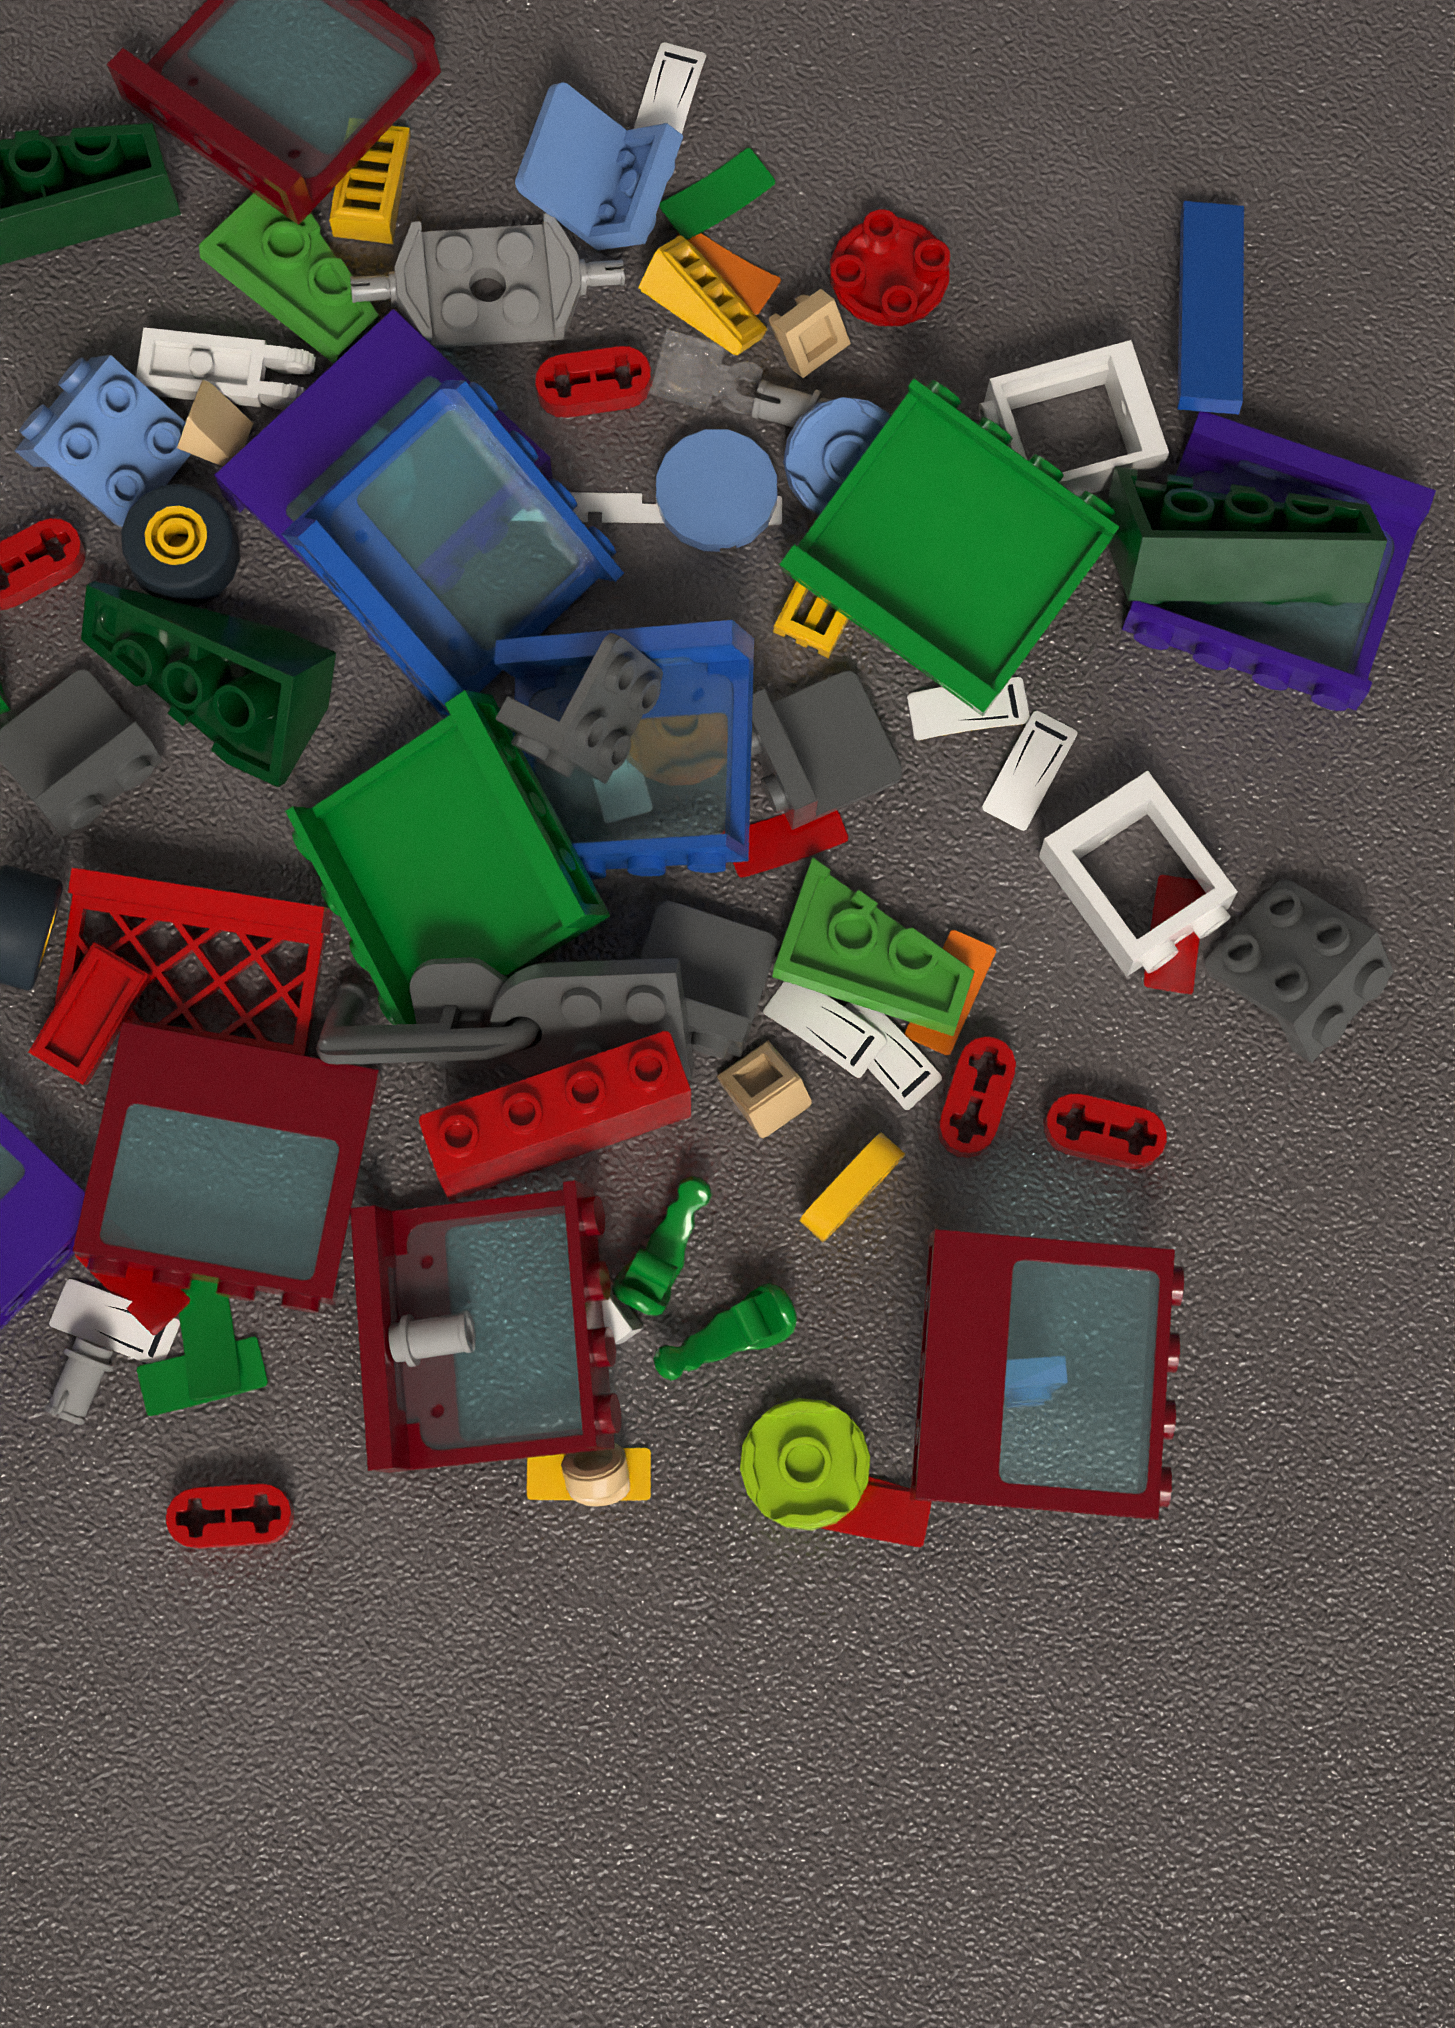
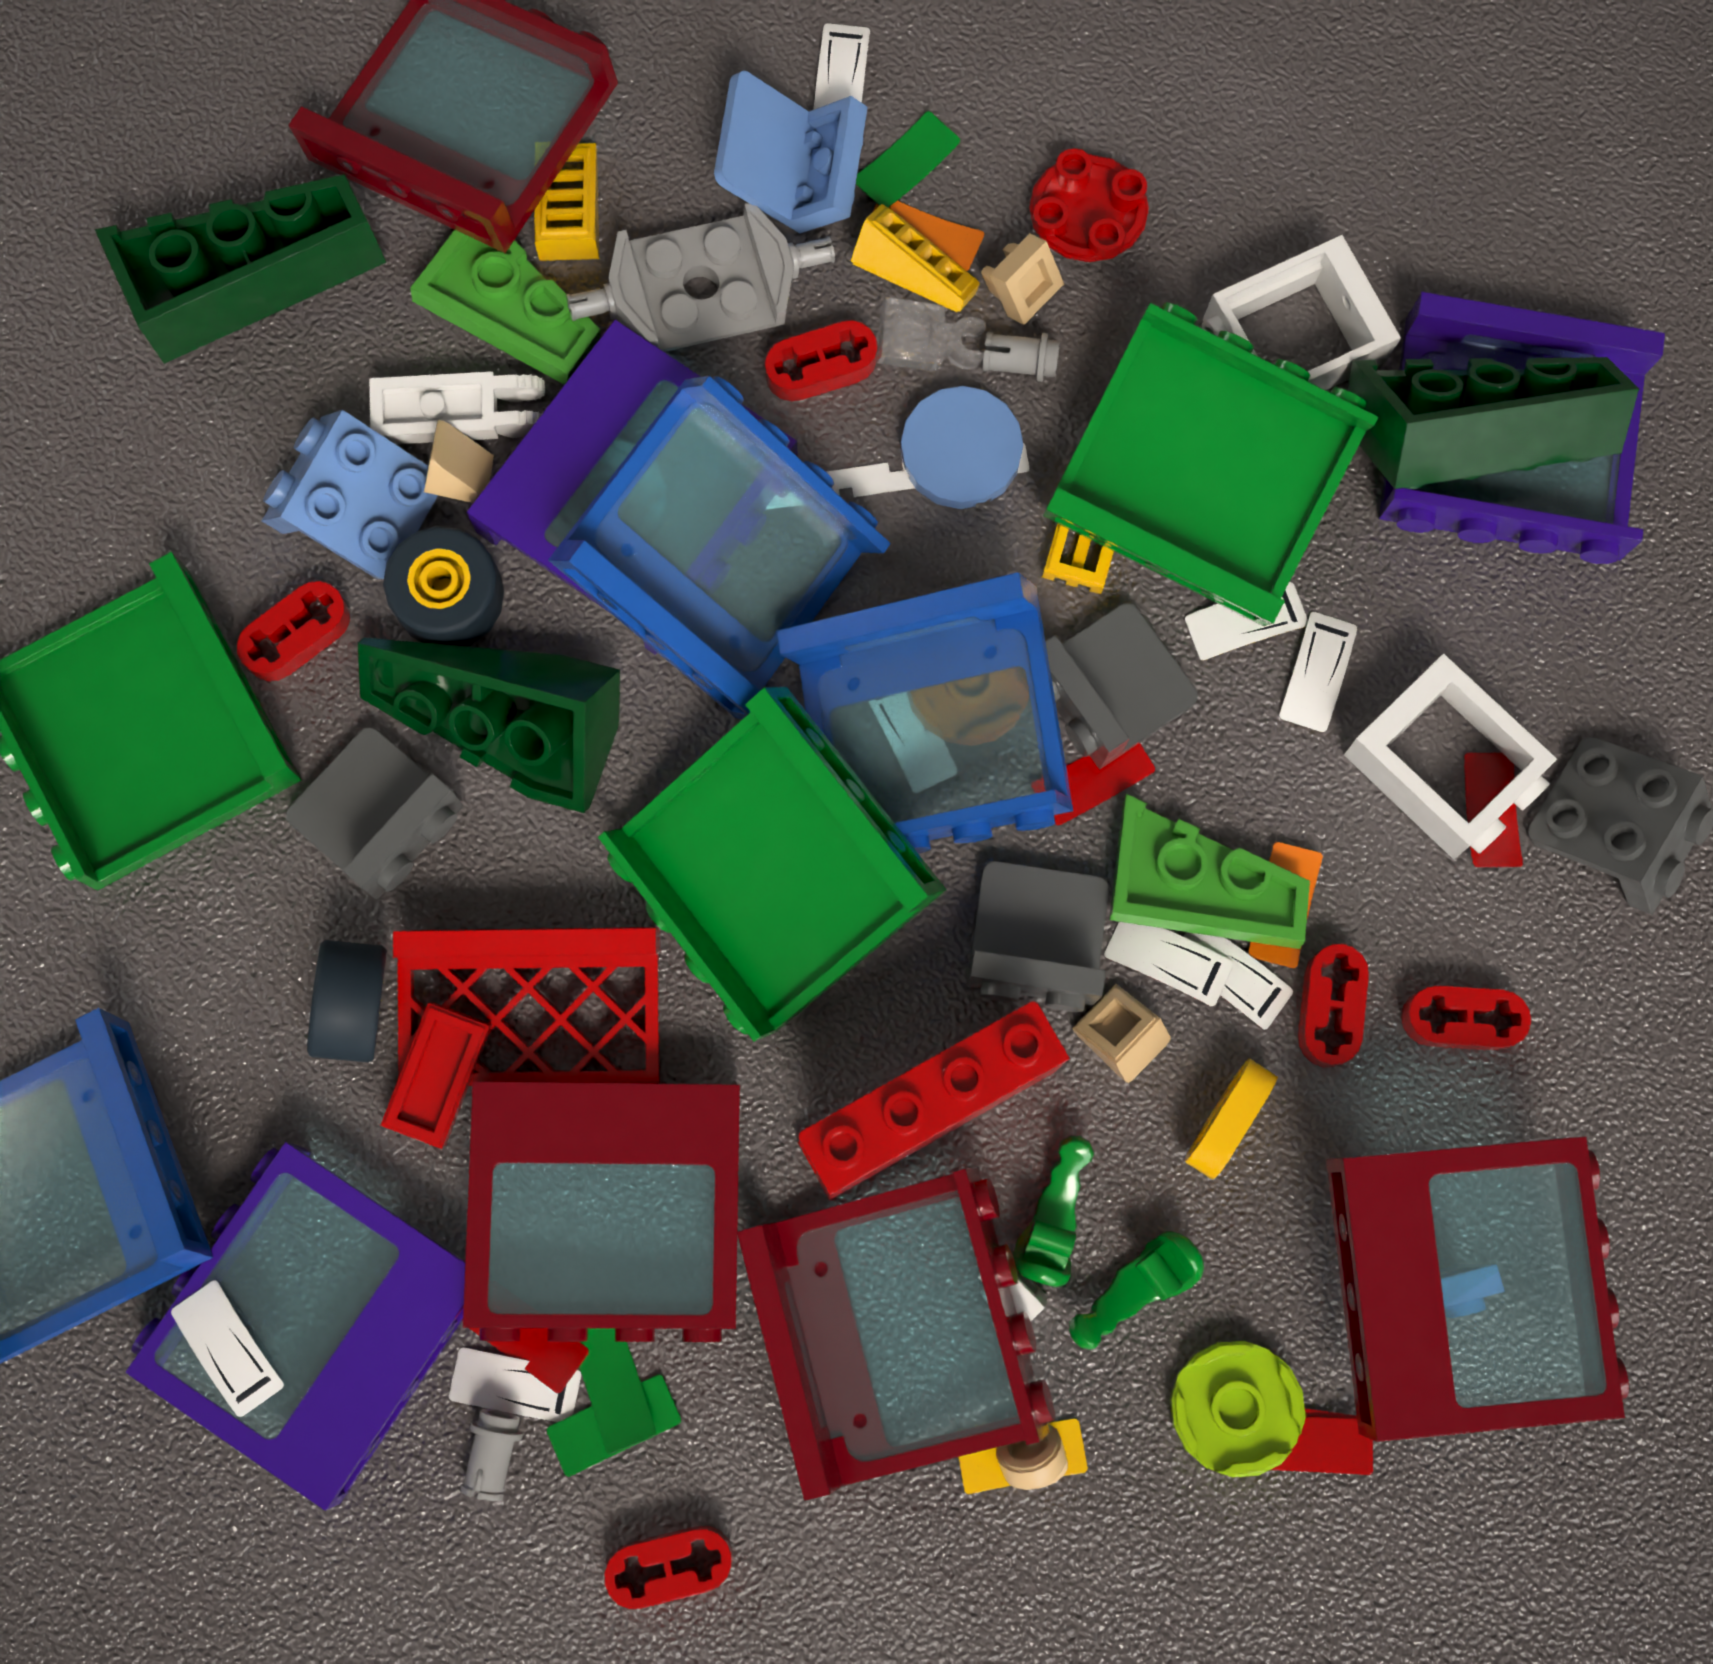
camera: 10 degrees left, 0 degrees up
(431, 1337) = (842, 1349): light grey pin -> none
(480, 1017) = (892, 1009): dark grey plate -> none
(599, 718) = (901, 695): dark grey bracket -> none
(828, 446) = (1067, 387): medium blue tile -> none
(1211, 308) = (1409, 193): blue tile -> none

